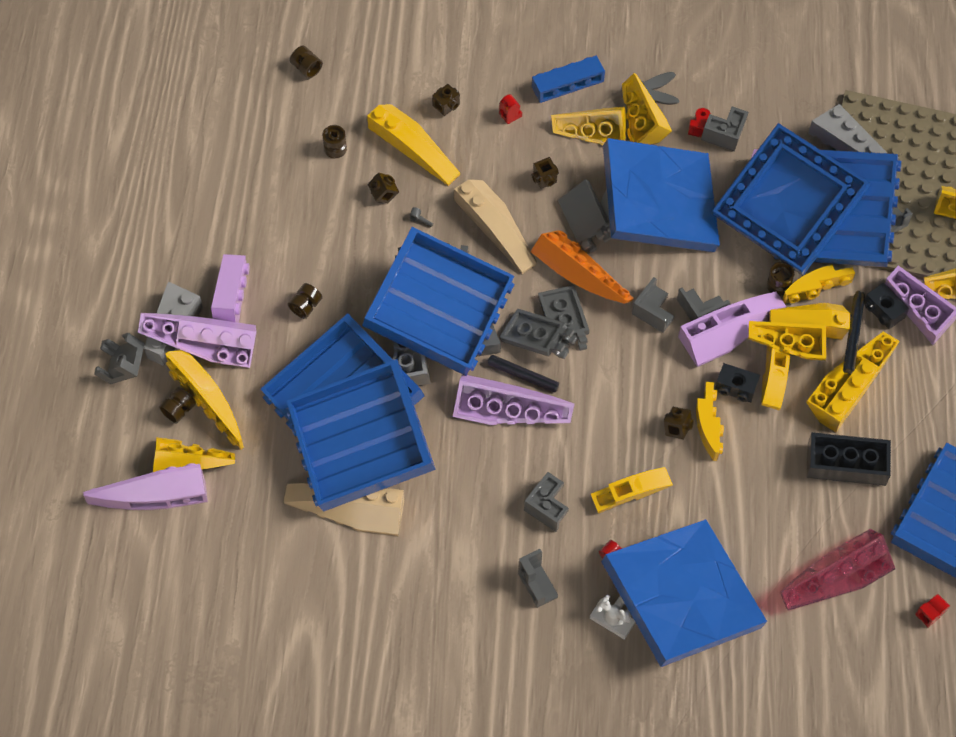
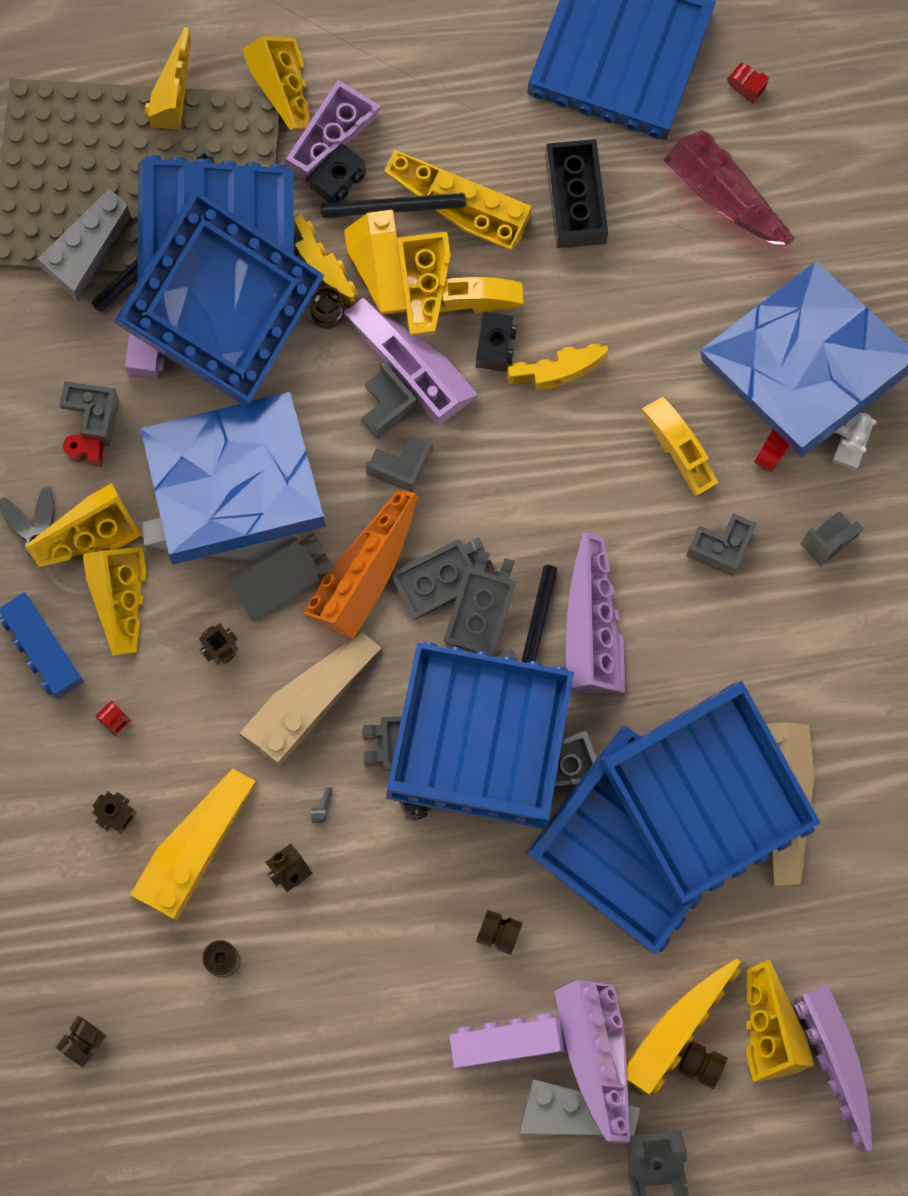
camera: 105 degrees left, 15 degrees up
(678, 422) = (572, 403): dark brown brick -> none

